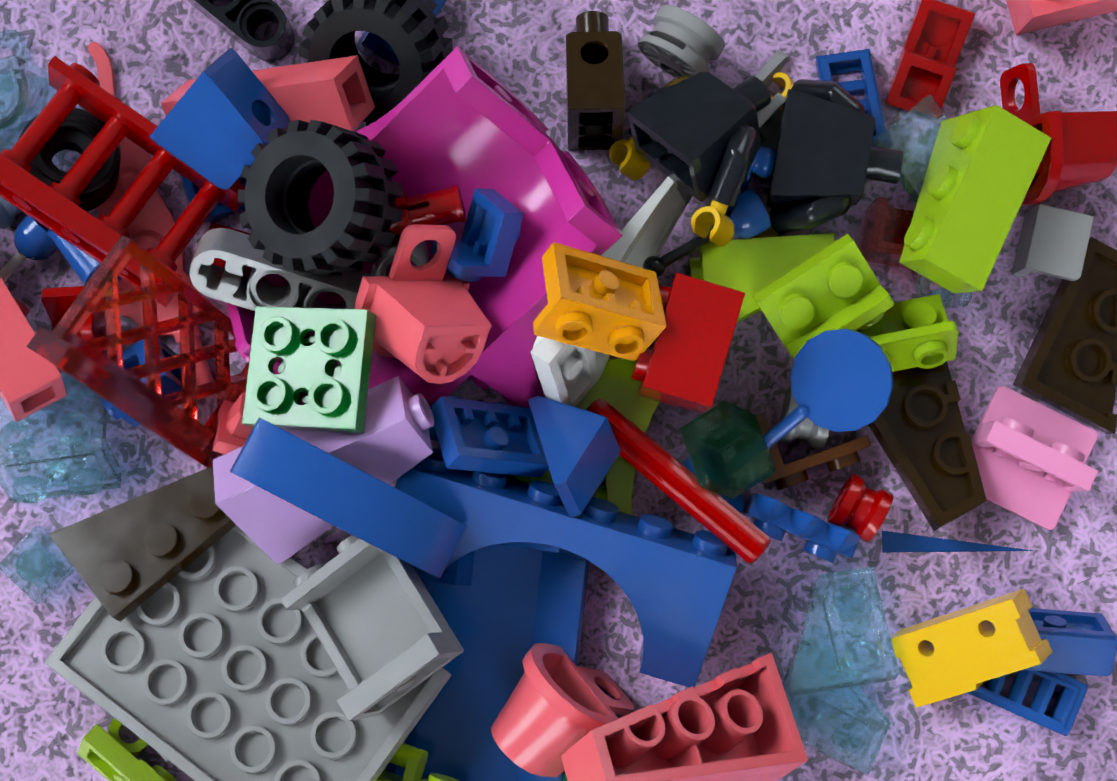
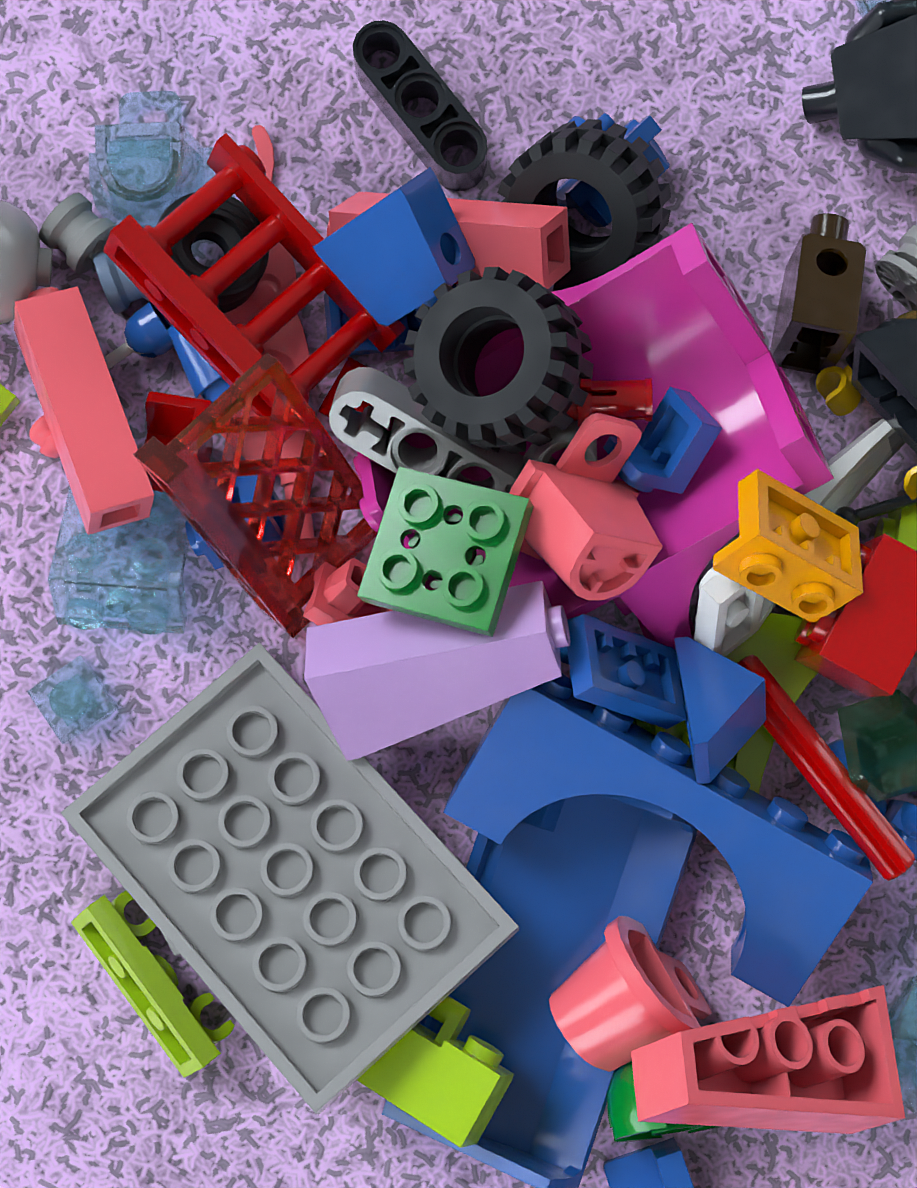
camera: 10 degrees right, 0 degrees up
(144, 541) = (206, 699): dark brown wing -> none
(348, 498) = (457, 704): blue slope -> none
(373, 625) = (450, 851): light grey panel -> none

